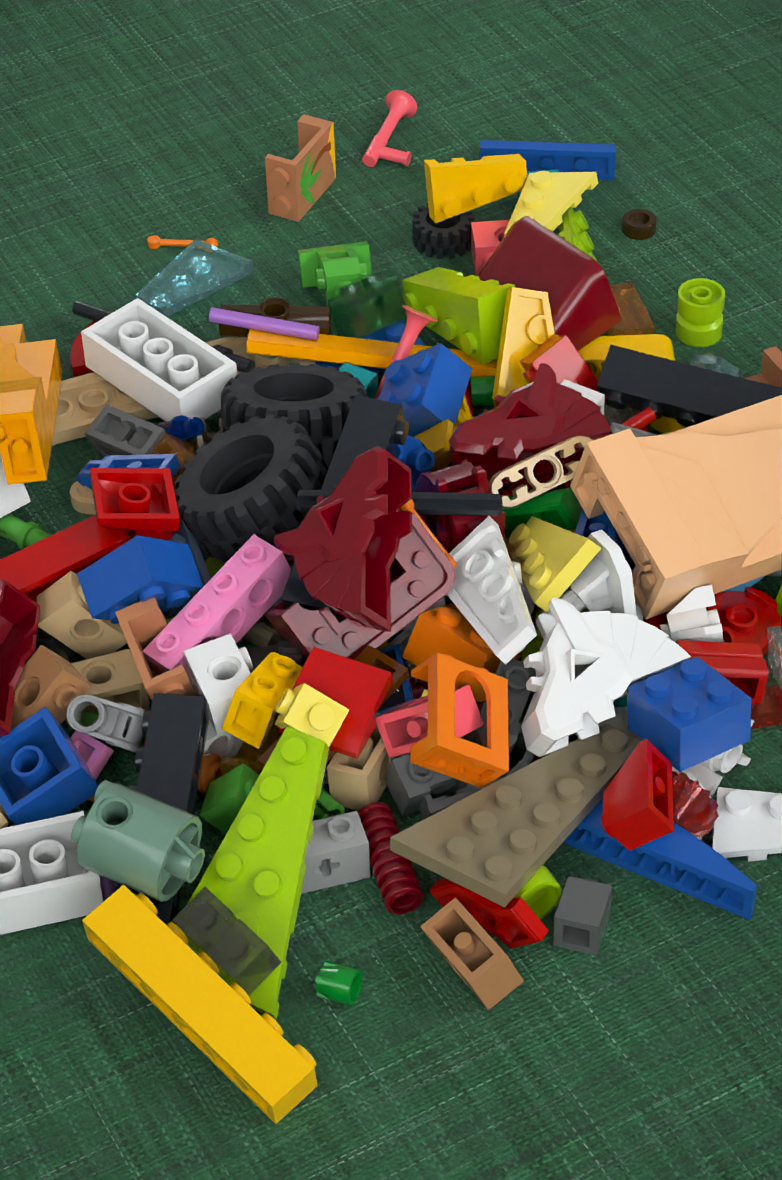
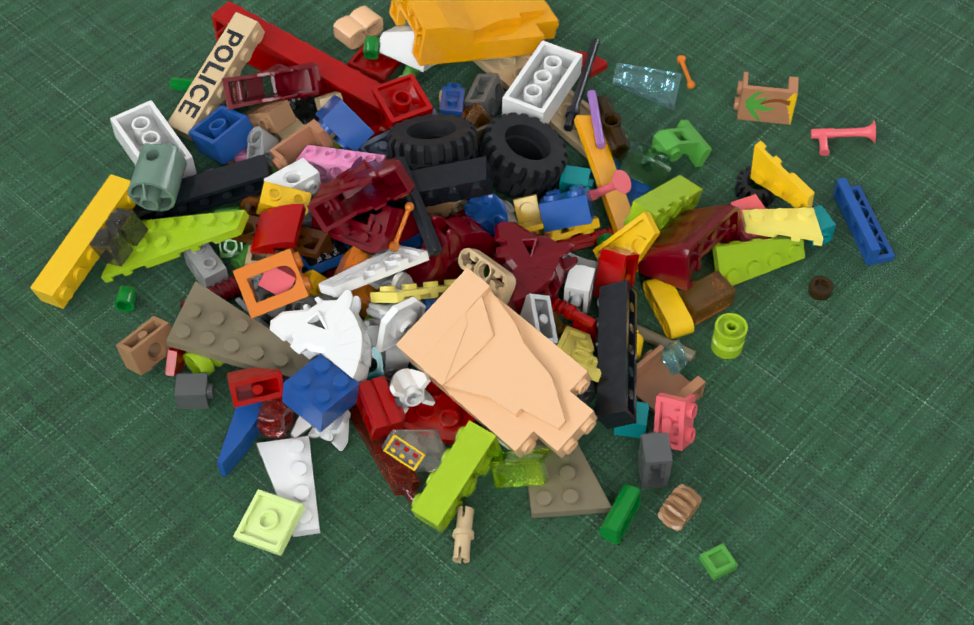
camera: 70 degrees right, 10 degrees up
(183, 427) = (494, 111): clear blue piece -> none
(310, 713) = (256, 217): light yellow bracket -> none

